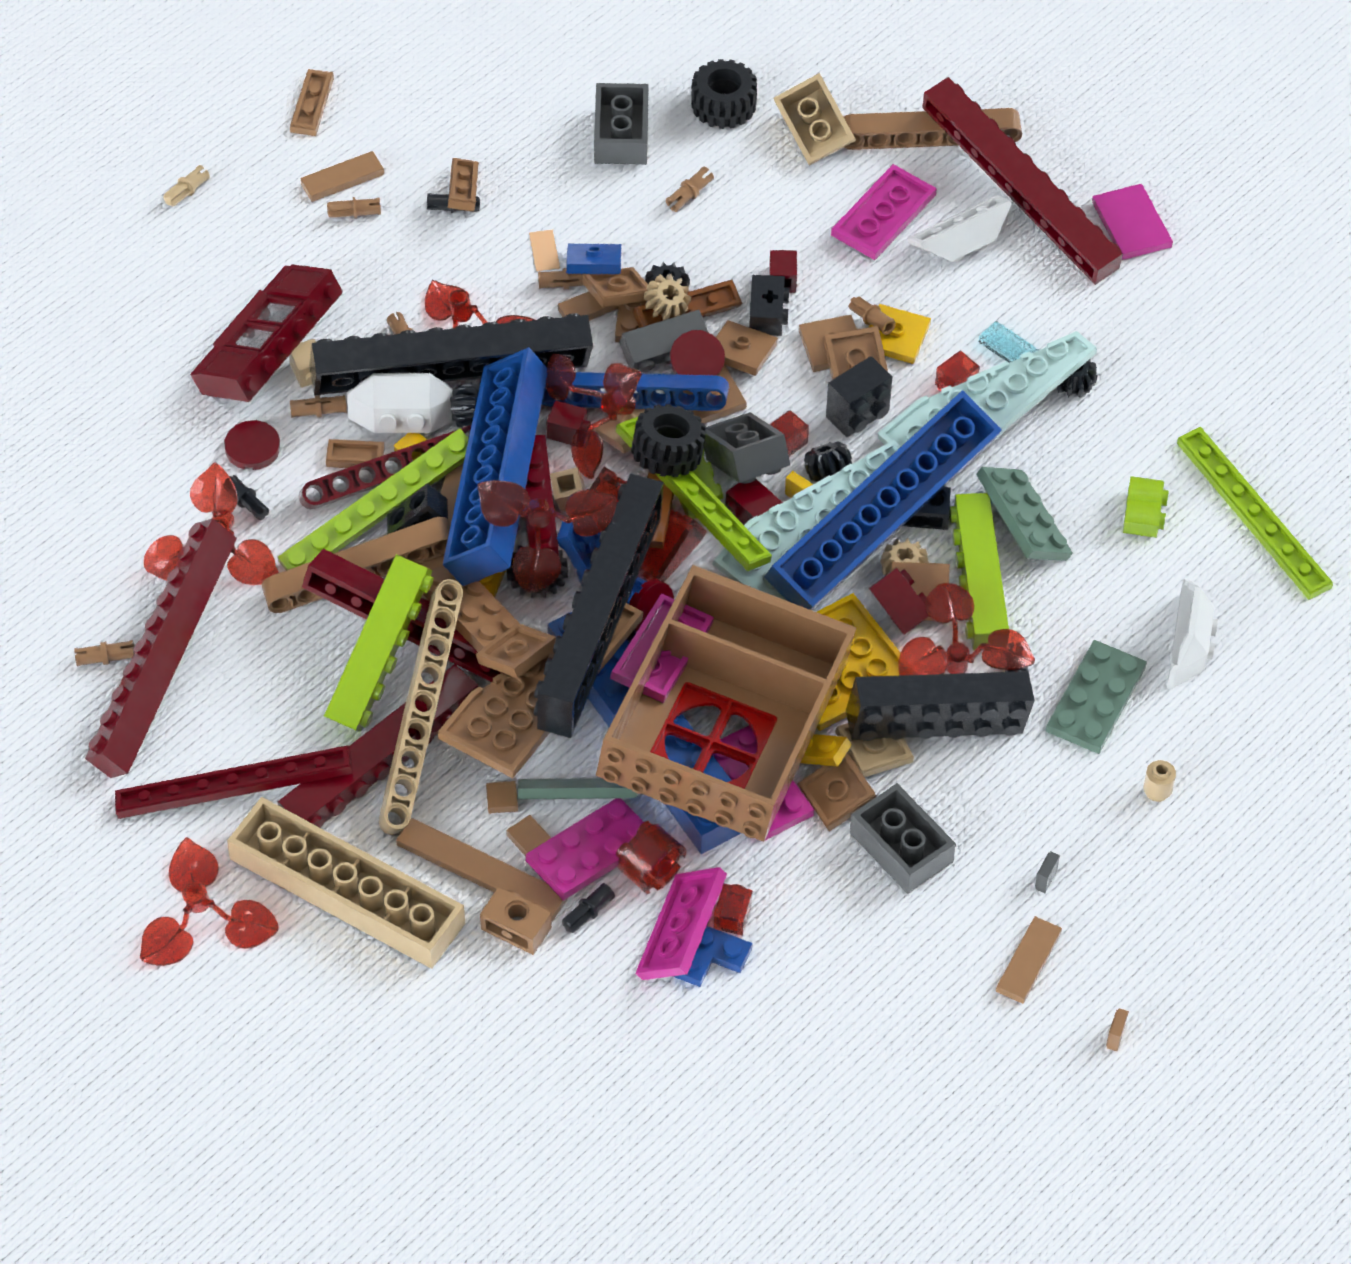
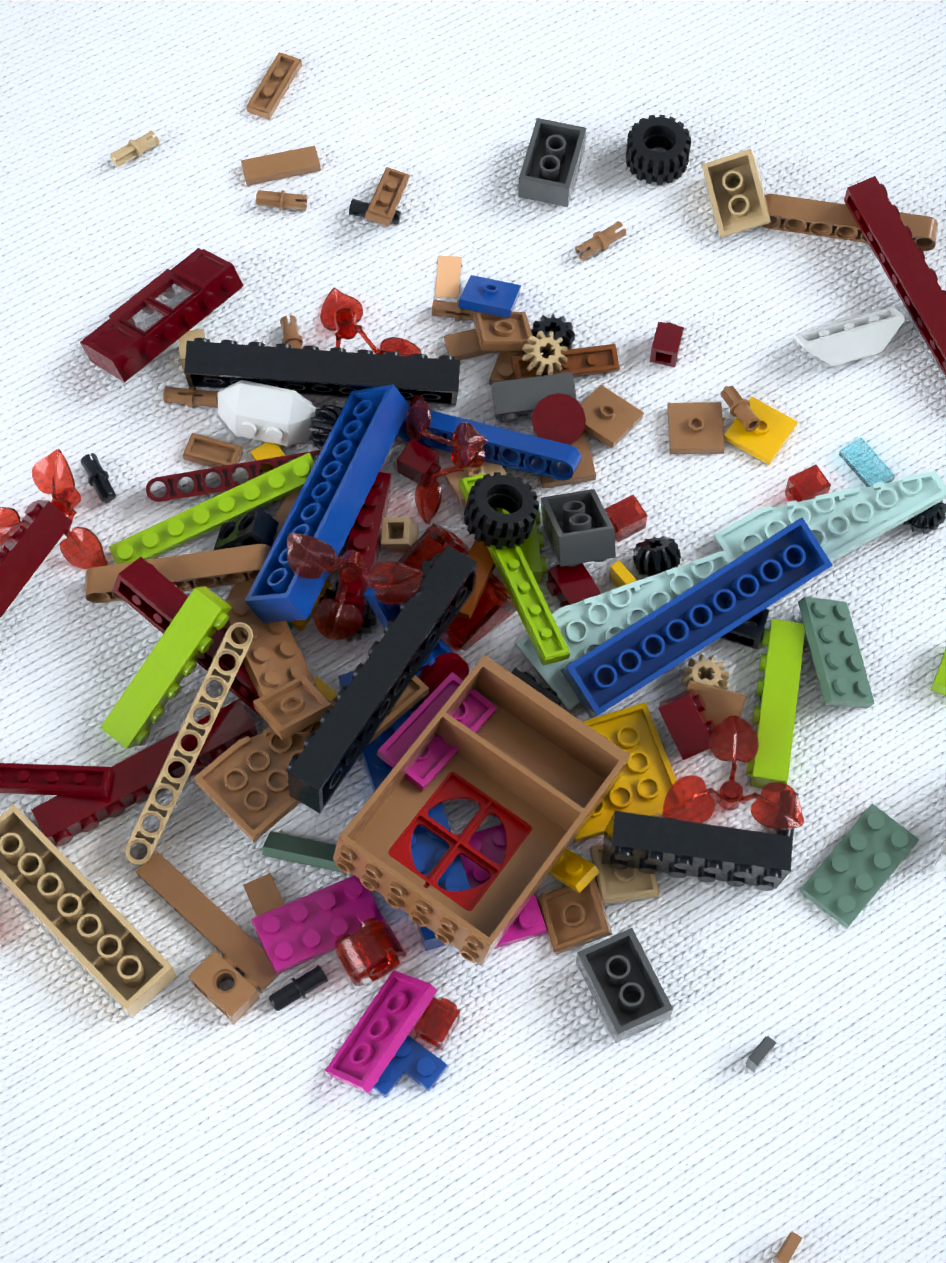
camera: 15 degrees right, 10 degrees up
(252, 444) = (120, 423): dark red tile -> none
(502, 797) = (248, 851): medium nougat tile -> none
(767, 304) = (642, 376): black brick -> none
(852, 347) = (713, 451): medium nougat plate -> none
(859, 397) = (704, 494): black brick -> none
(883, 212) = (780, 300): dark pink plate -> none
(1029, 960) = (718, 1146): medium nougat tile -> none
(1159, 780) = (893, 983): tan brick -> none

